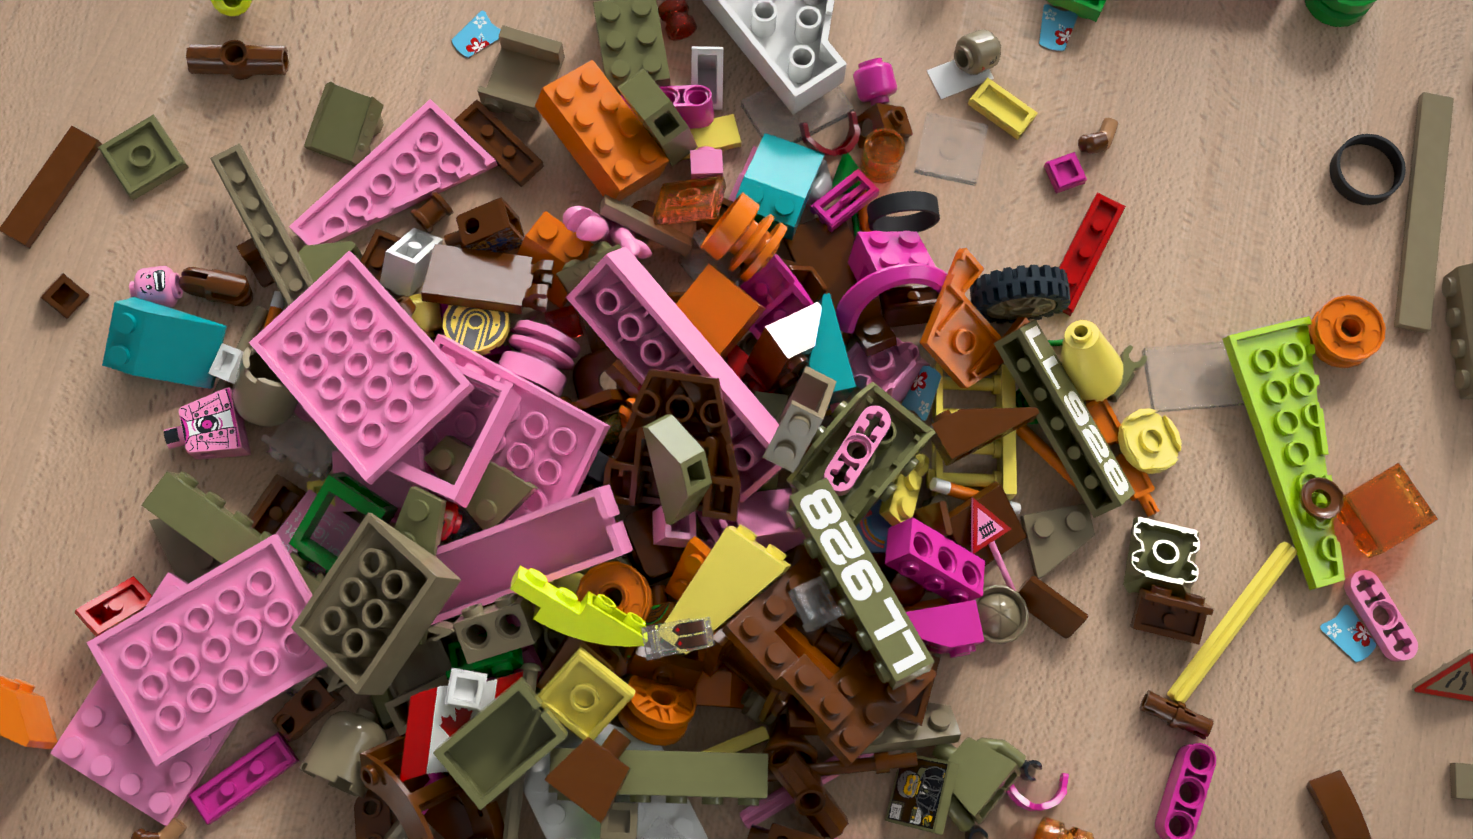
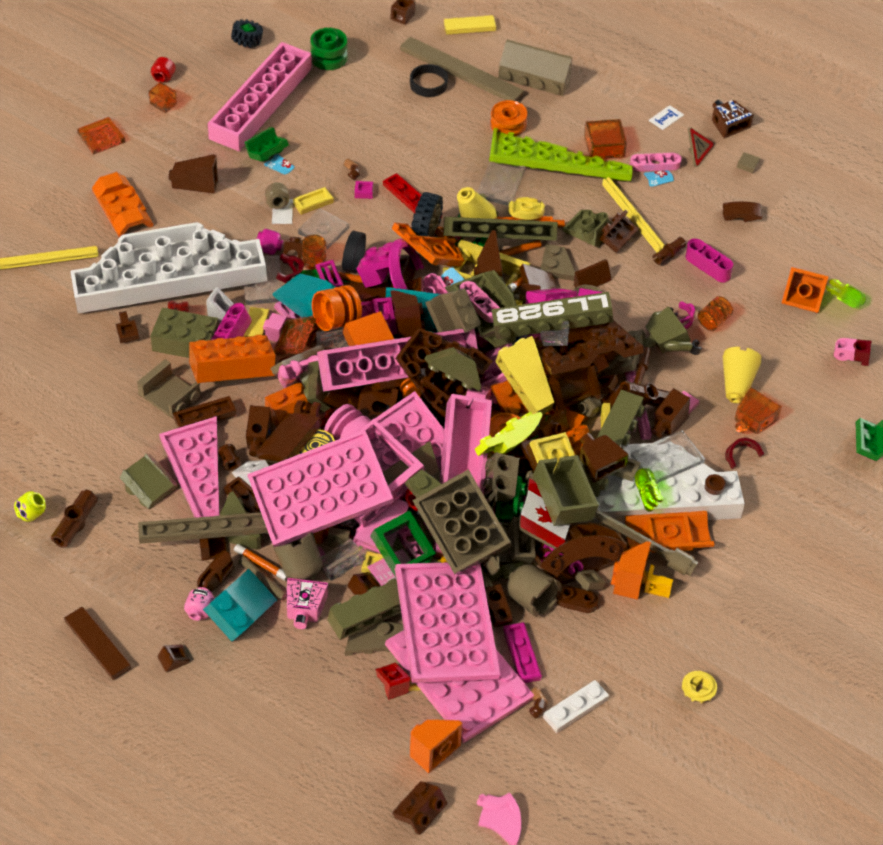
camera: 65 degrees left, 25 degrees down
(143, 157) = (106, 590): olive tile -> none
(226, 363) = (271, 576): white tile -> none
(466, 689) = (528, 501): white tile -> none
(476, 35) = (127, 406): medium azure sticker -> none
(658, 116) = (239, 322): olive slope -> none
(677, 637) = (545, 396): clear leg -> none
(923, 795) = (667, 353): tile -> none
(986, 529) = (543, 280): piece -> none
(1329, 490) = (589, 151): reddish brown piece -> none

